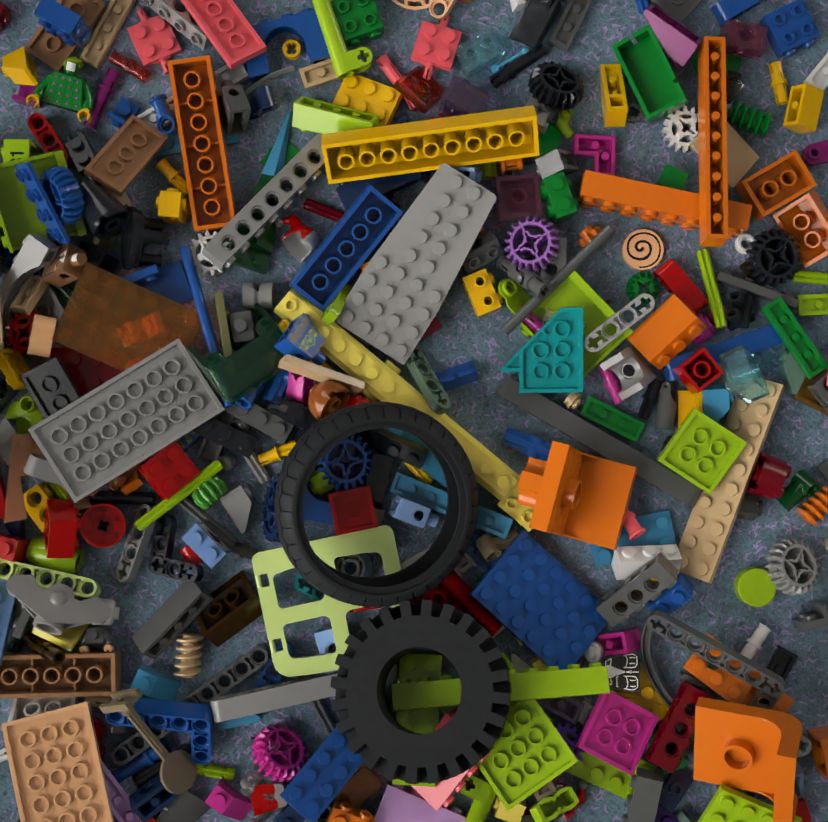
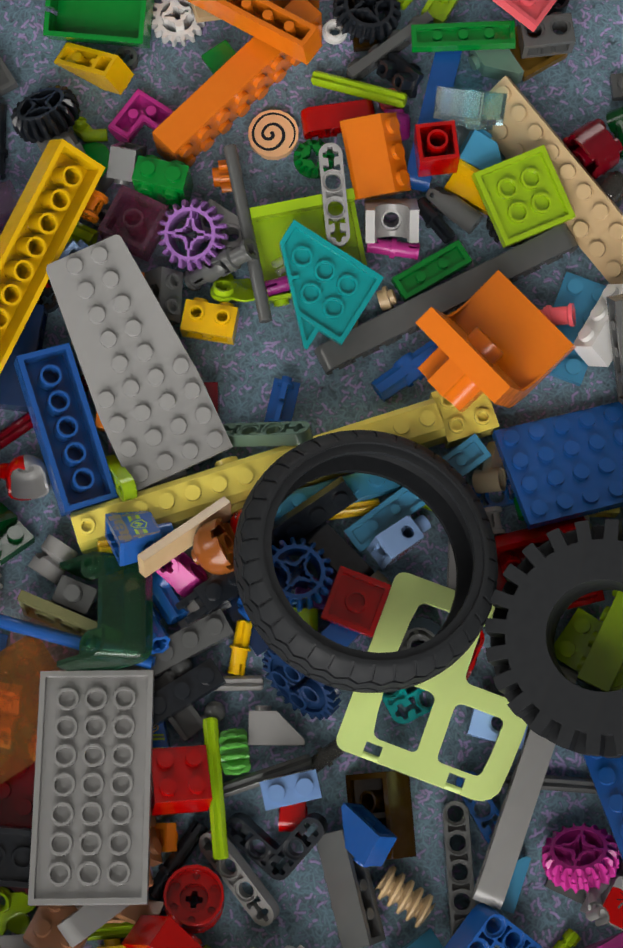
camera: 60 degrees left, 10 degrees down
(208, 609) = (365, 835): none -> blue slope

